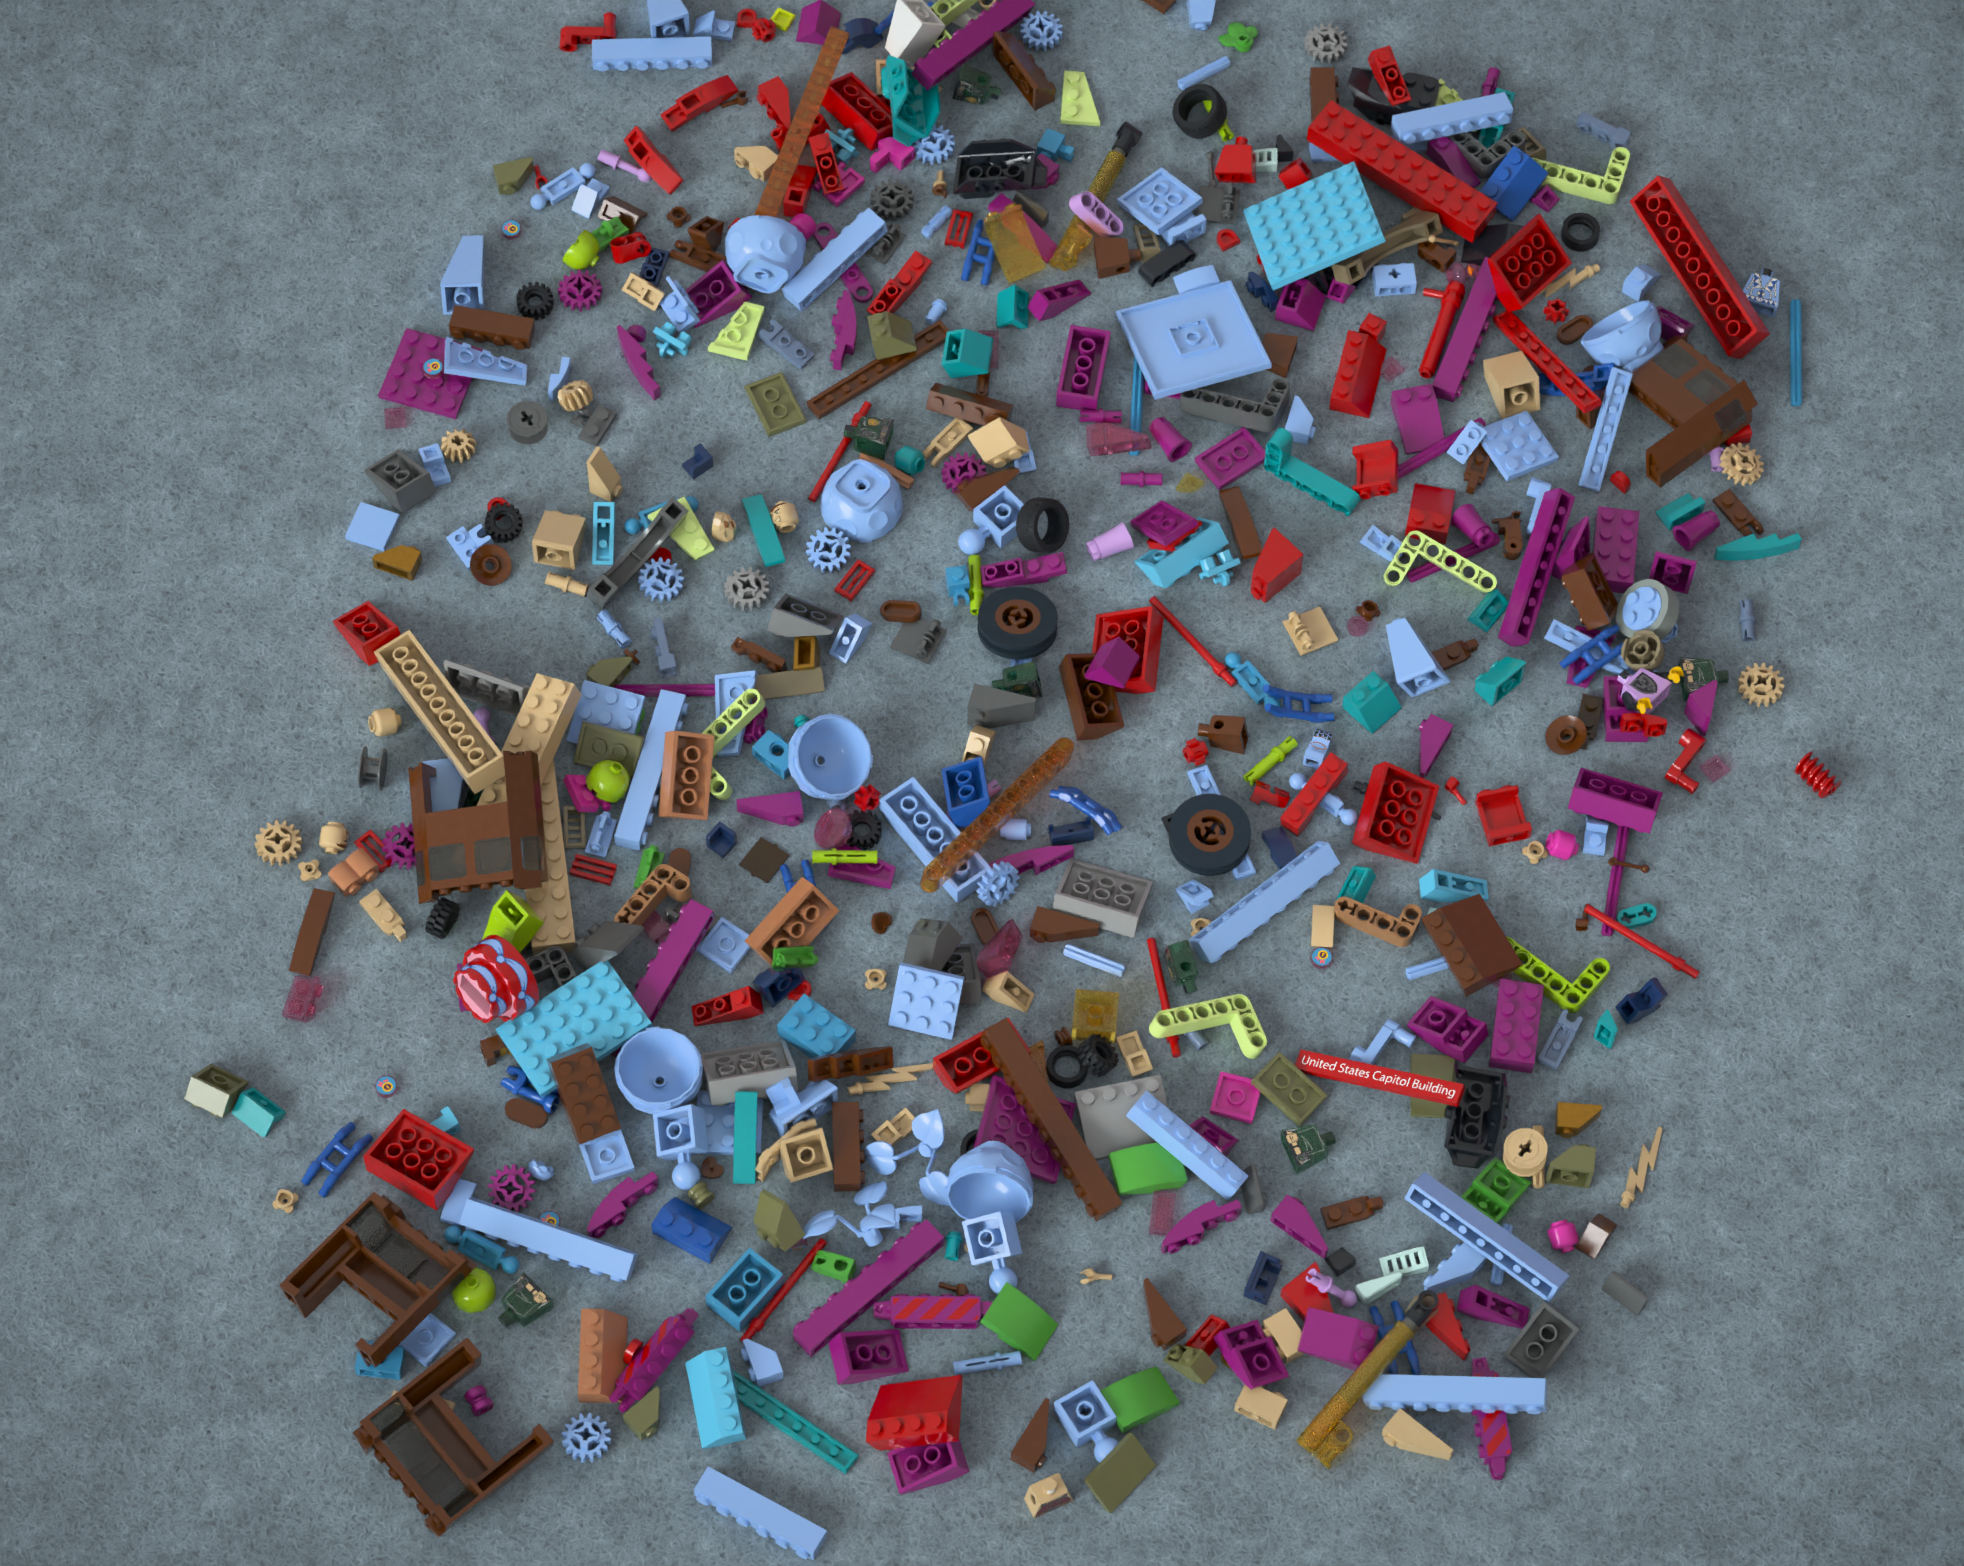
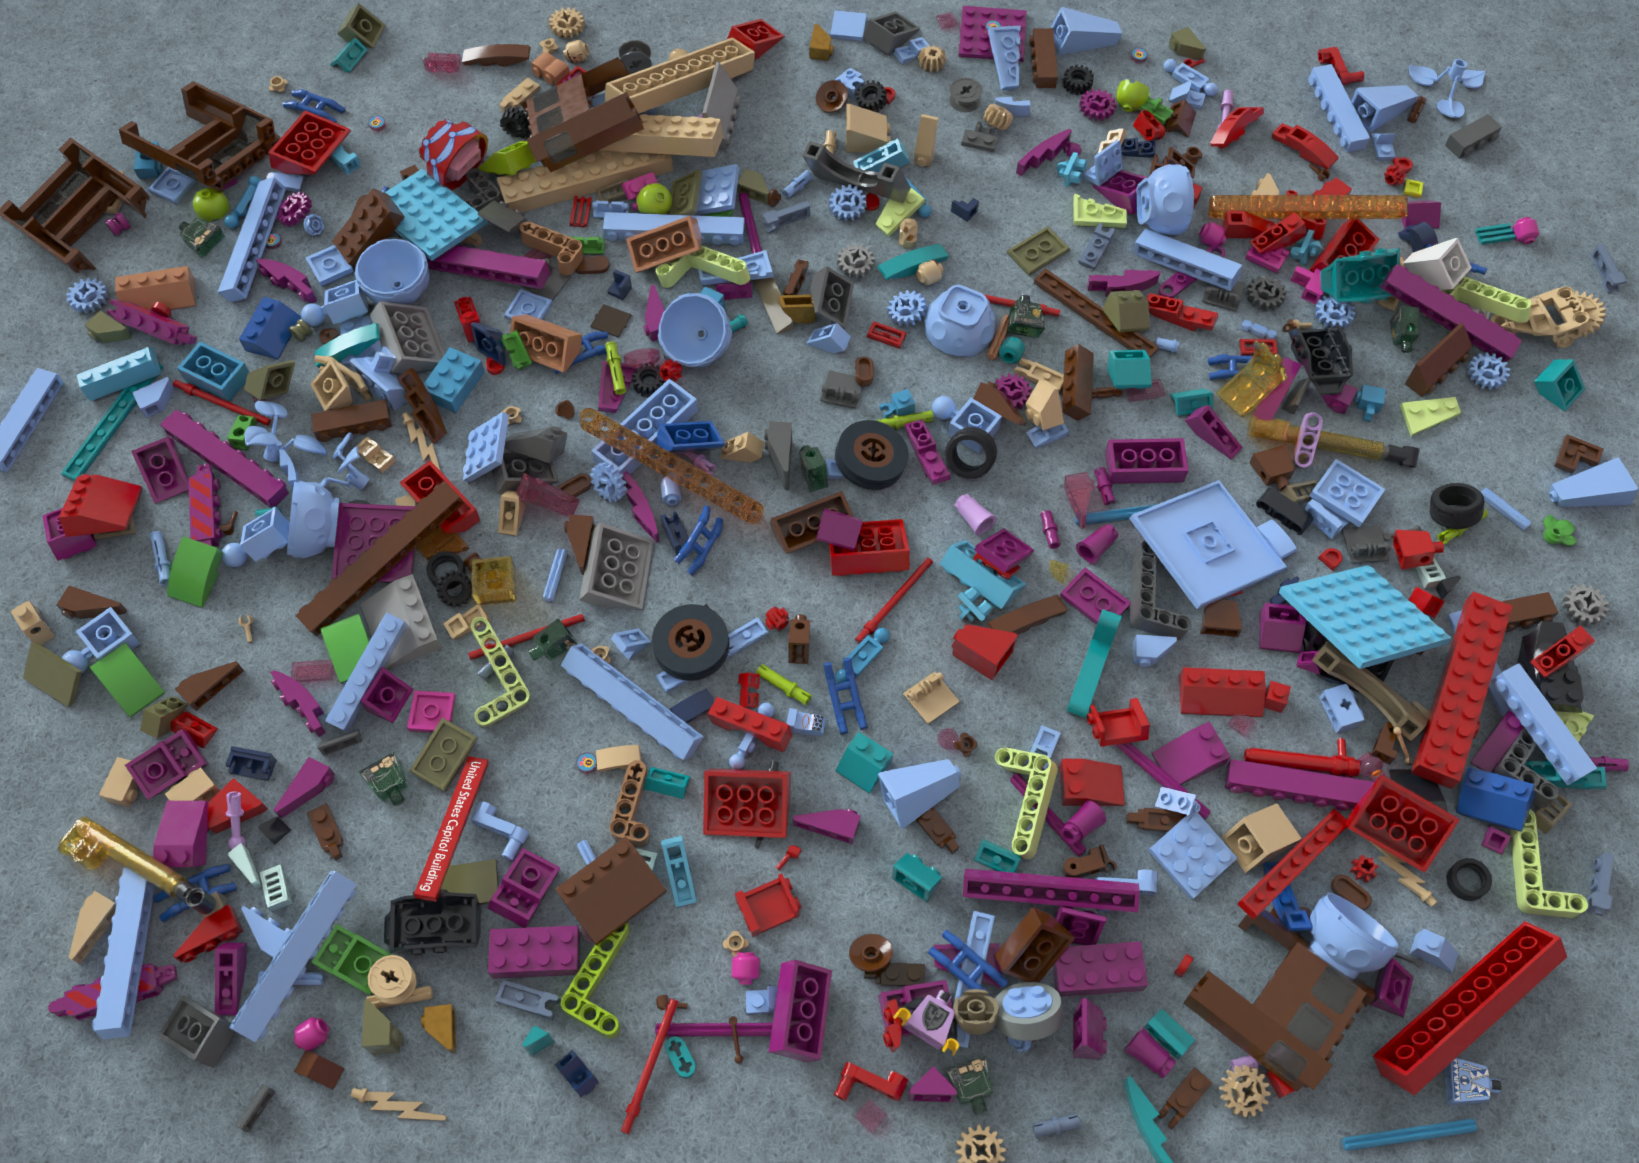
camera: 80 degrees right, 0 degrees up
(1605, 429) = (1233, 934): light blue tile -> none

